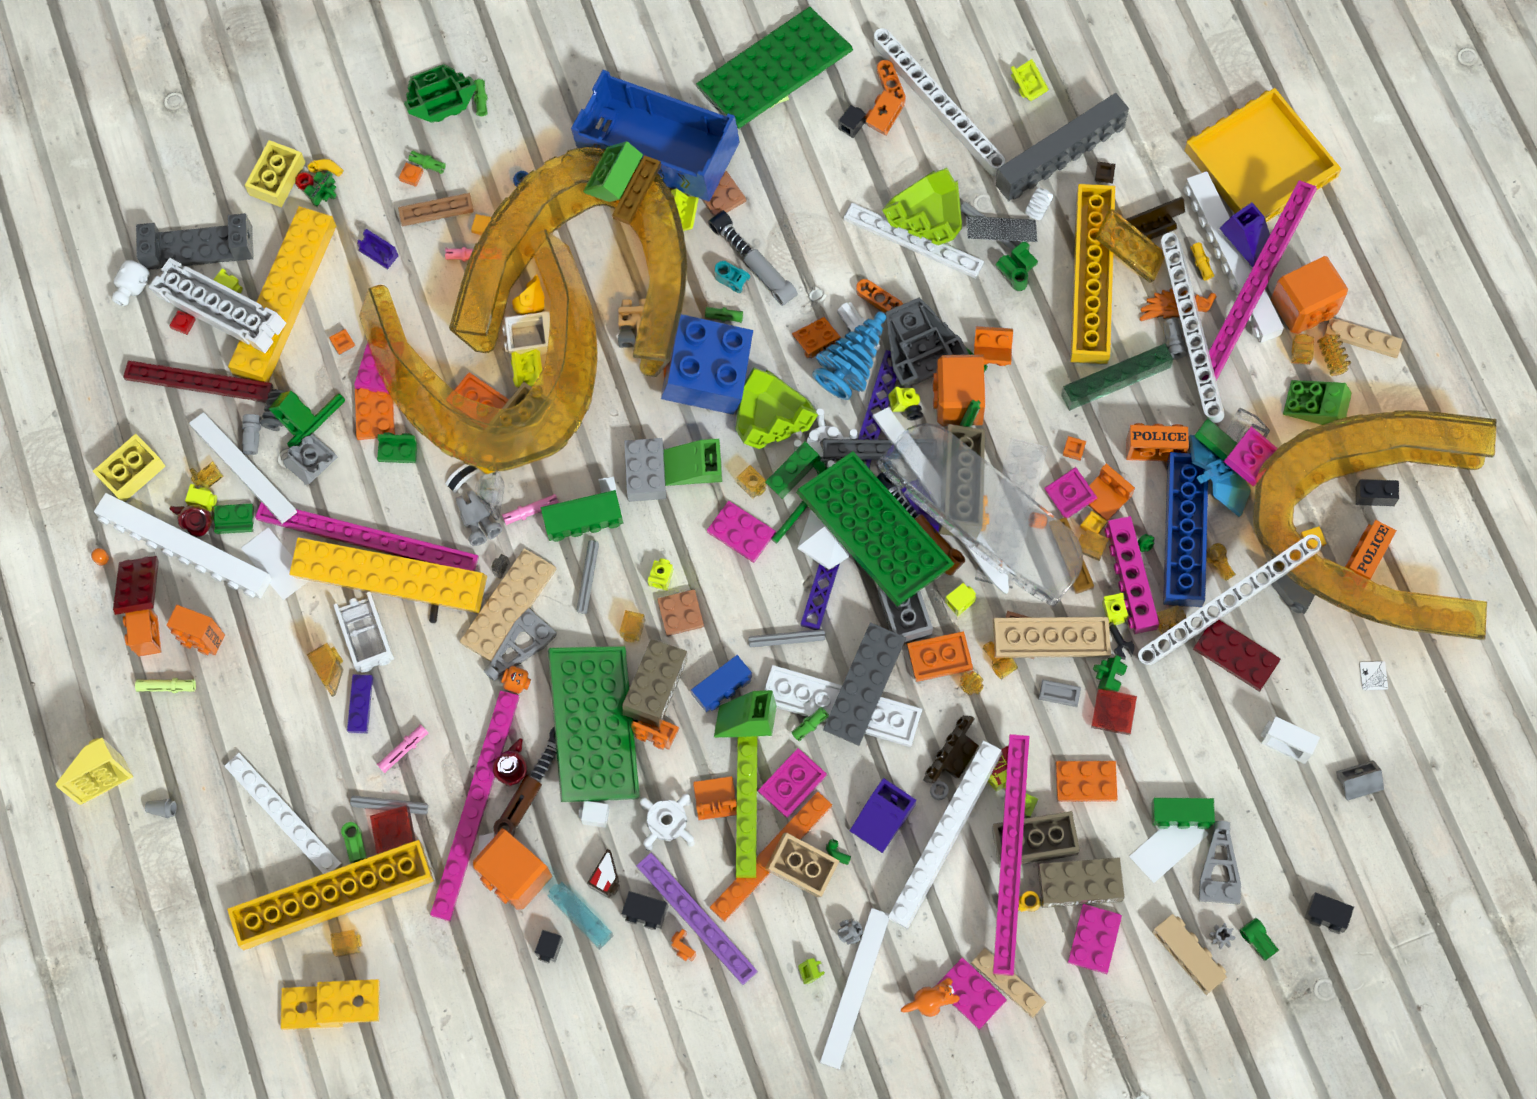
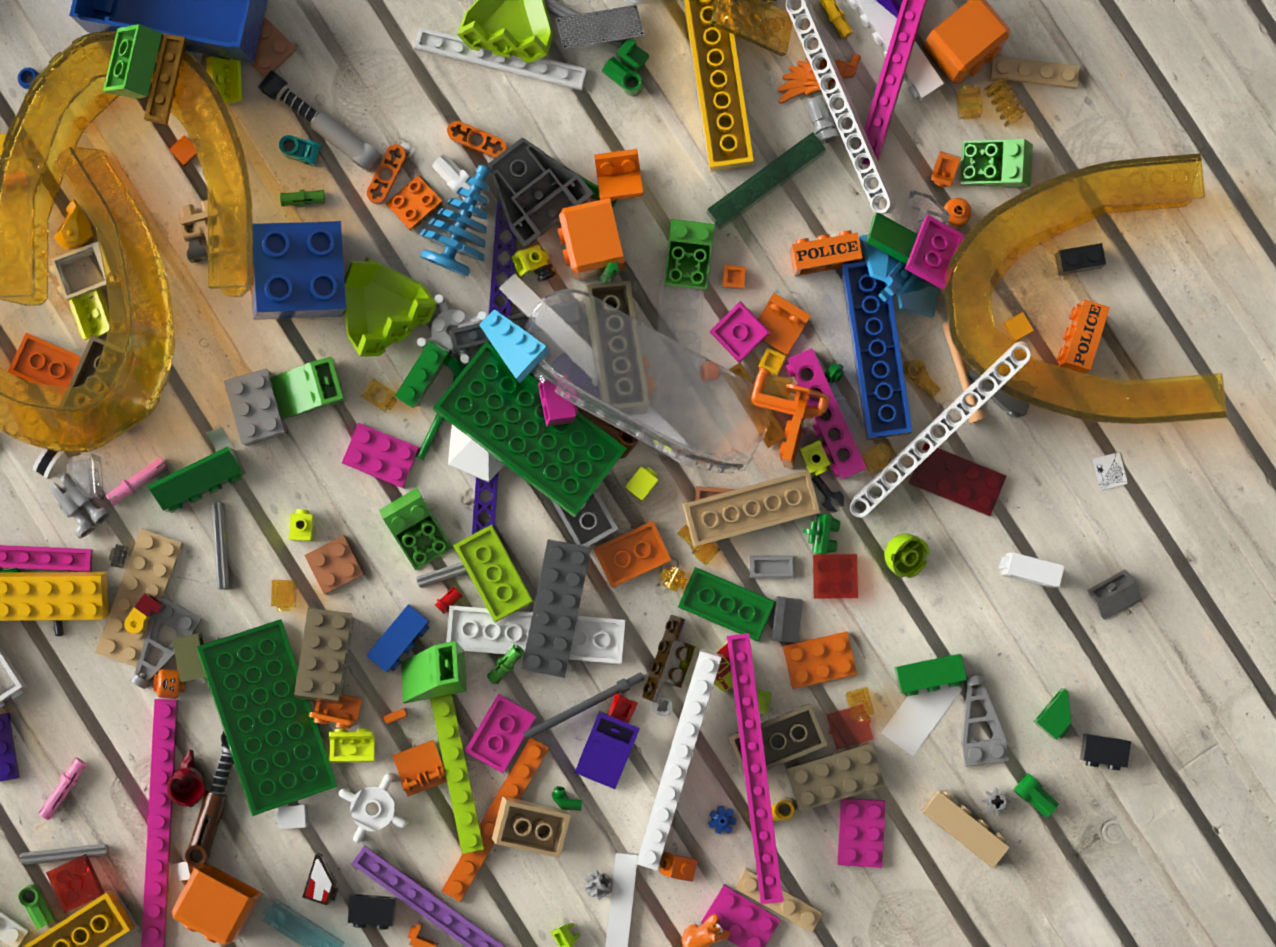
camera: 15 degrees left, 15 degrees up
(508, 614) = (139, 616): none -> leg
(538, 661) = (187, 657): none -> olive panel
(635, 259) = (183, 150): none -> orange tile
(660, 765) = (352, 746): none -> neon yellow bracket
(704, 748) = (397, 715): none -> orange tile
(758, 597) = (415, 529): none -> bright green slope
(776, 659) = (448, 599): none -> red pin
(799, 301) = (398, 162): none -> orange beam
(816, 646) = (493, 573): none -> lime tile
(876, 455) = (515, 346): none -> medium azure wing
(902, 510) = (555, 407): none -> dark pink brick
(905, 782) = (622, 708): none -> red plate
(906, 766) = (621, 686): none -> dark grey bar
(924, 932) = (678, 866): none -> orange bracket
(969, 904) = (722, 814): none -> blue plant
(1013, 715) = (726, 604): none -> green tile
(1040, 419) = (689, 254): none -> bright green slope
(1064, 740) = (786, 619): none -> flat silver panel
(1102, 843) = (848, 732): none -> clear red piece
(1106, 562) = (798, 408): none -> orange plate
(1111, 817) = (856, 713): none -> clear yellow brick
(1181, 704) = (906, 555): none -> lime cylinder
(1263, 602) = (979, 415): none -> light nougat piece
(1272, 397) = (945, 169): none -> orange bracket
(1278, 432) = (961, 206): none -> orange head
(1289, 873) = (1055, 716): none -> green slope

